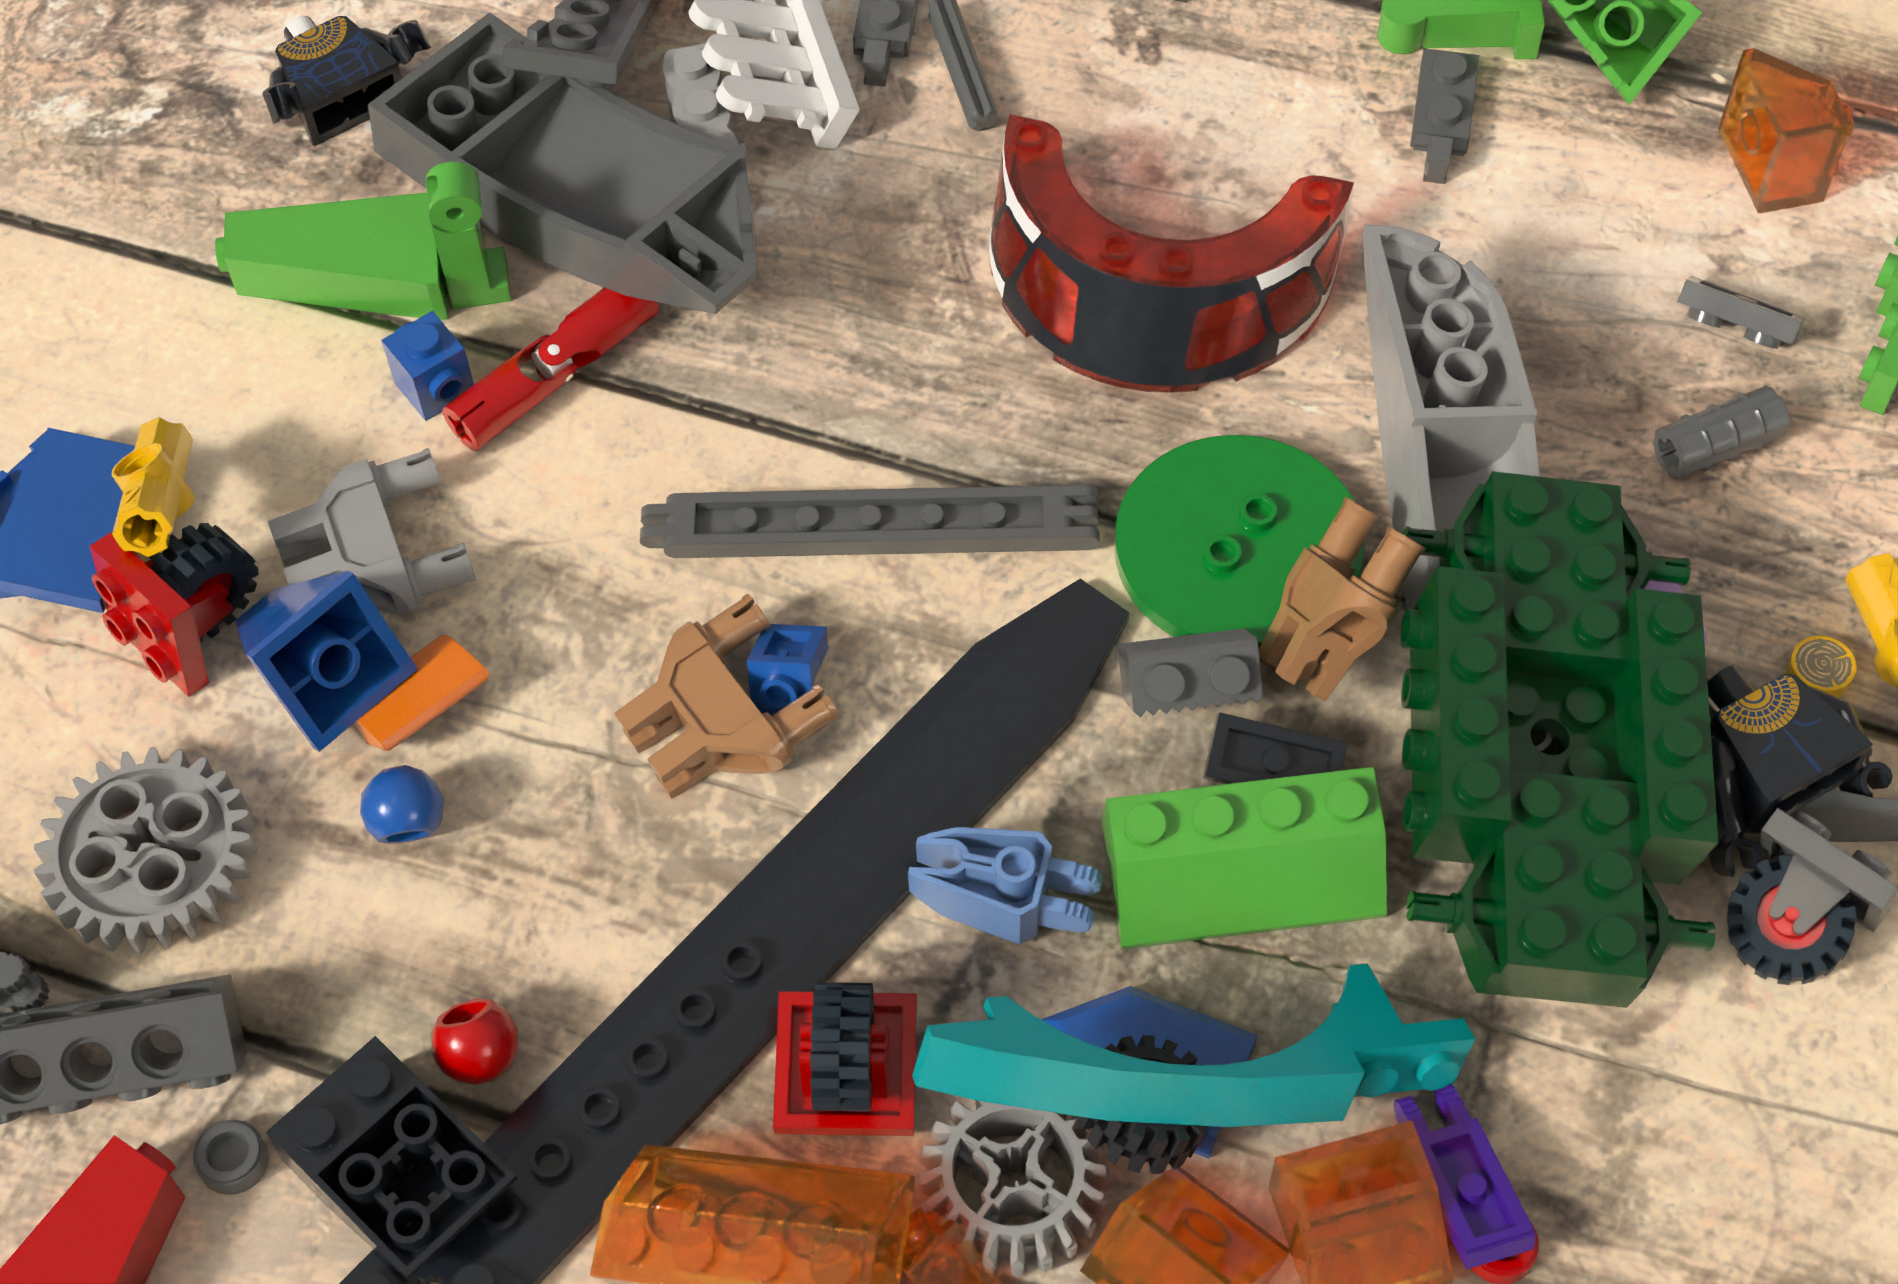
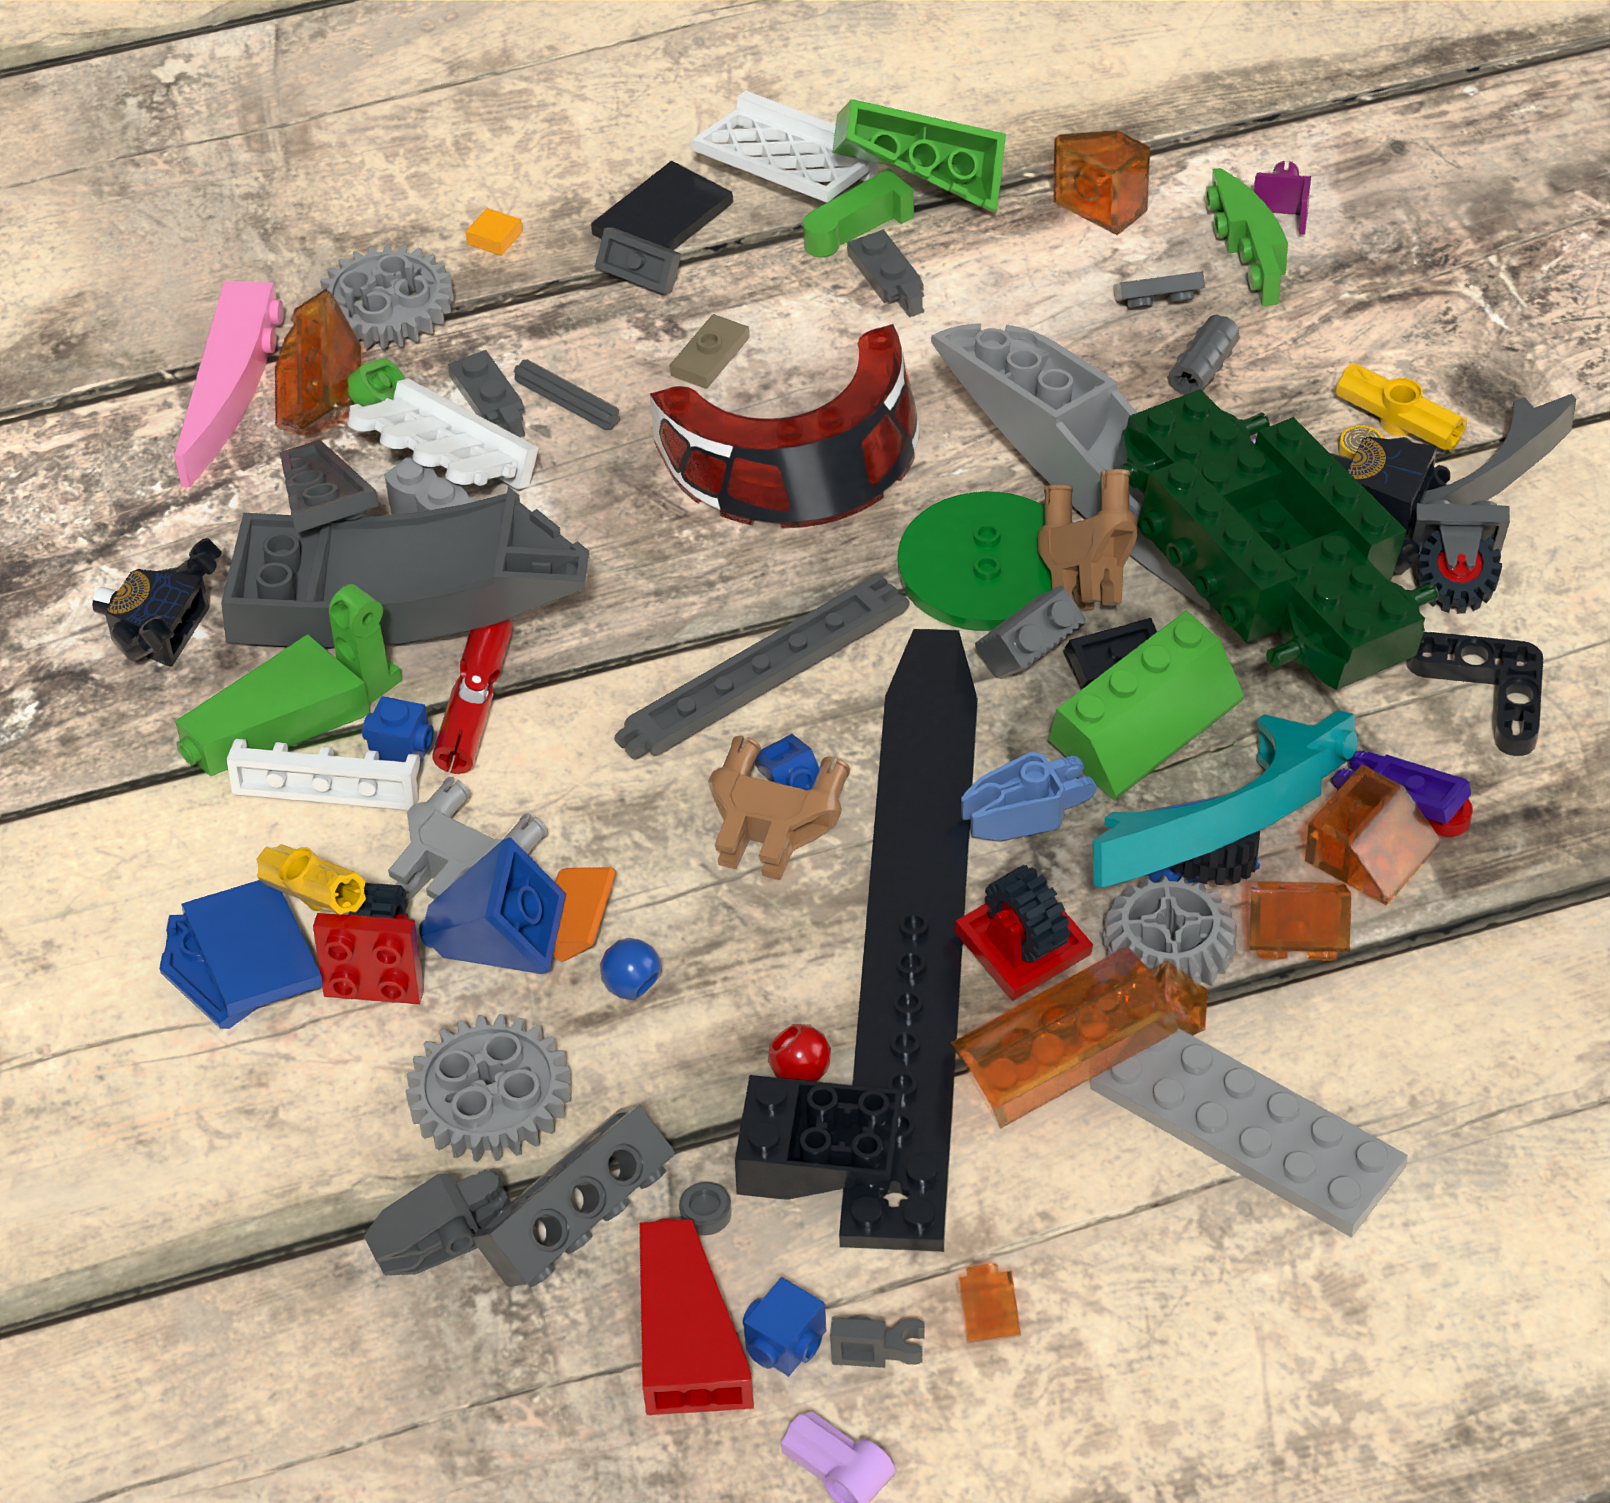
camera: 35 degrees left, 10 degrees down
(318, 367) = (323, 776): none -> white hinge
(1160, 97) = (709, 351): none -> dark tan plate
(1738, 1109) = (1507, 676): none -> black beam

